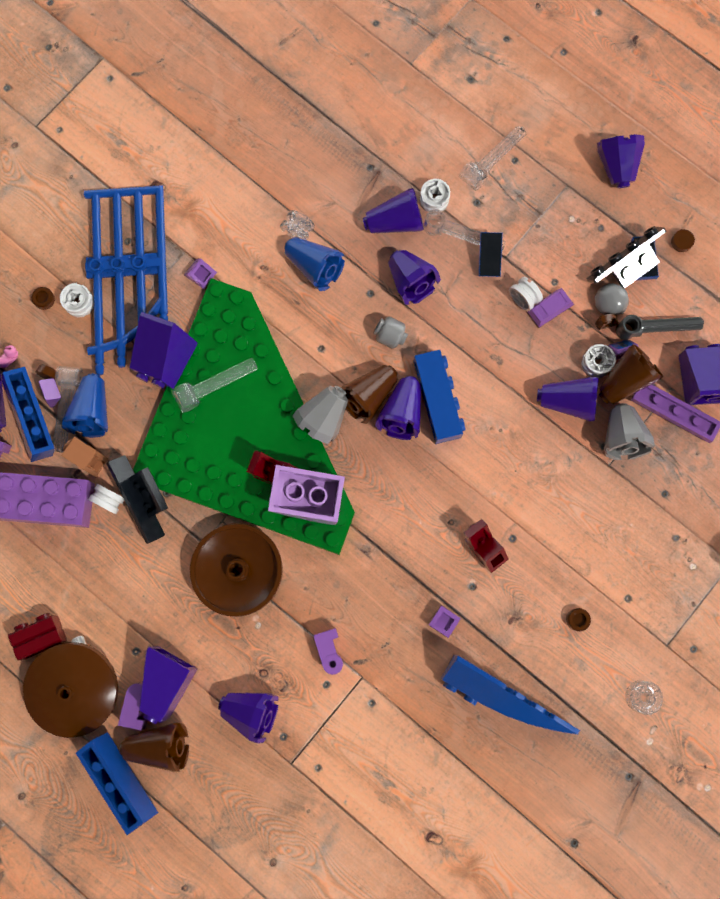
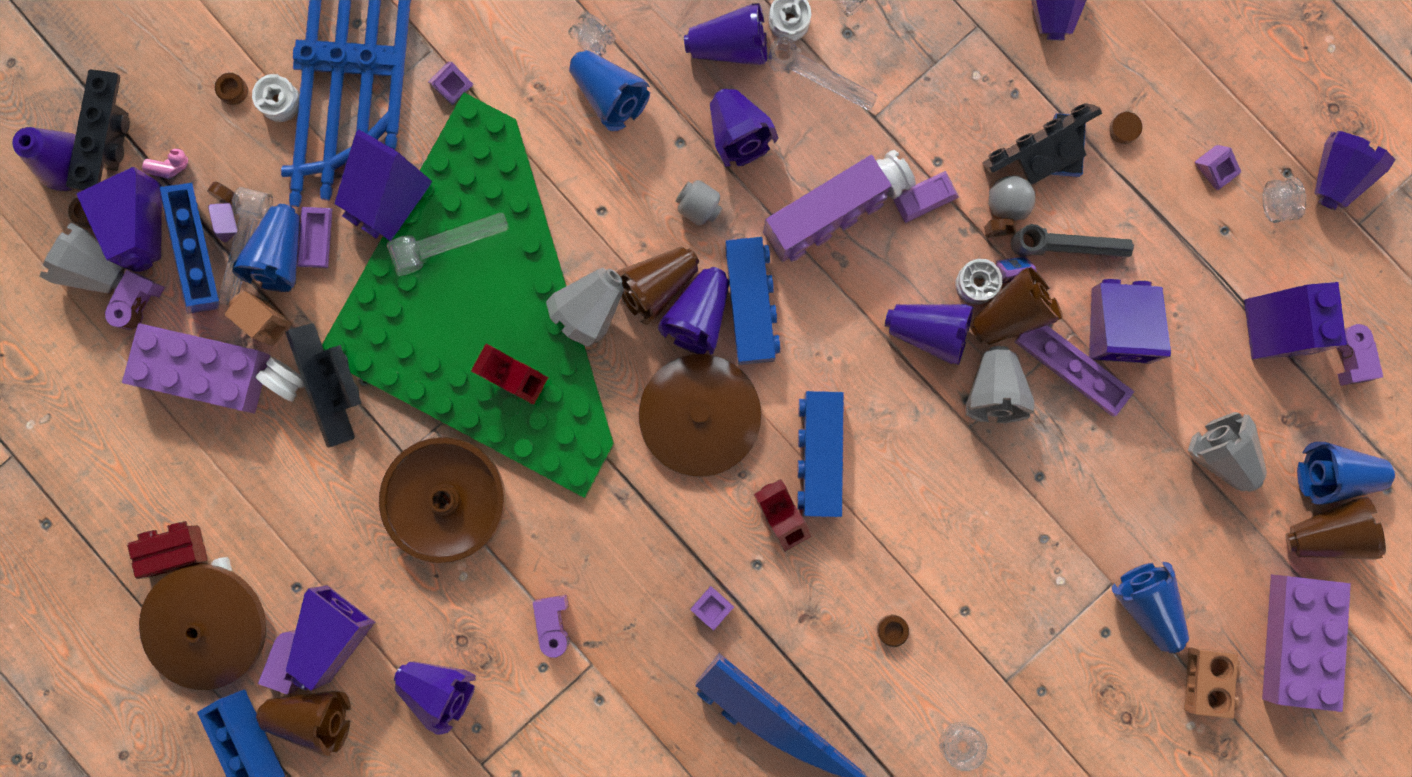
camera: 10 degrees right, 5 degrees up
(117, 394) = (314, 237): none -> medium lavender tile
(306, 494) = (547, 412): lavender slope -> none
(414, 483) = (700, 415): none -> reddish brown dish
(483, 323) = (826, 209): none -> medium lavender brick
(490, 254) = (853, 111): black tile -> none
(507, 498) = (822, 454): none -> blue brick

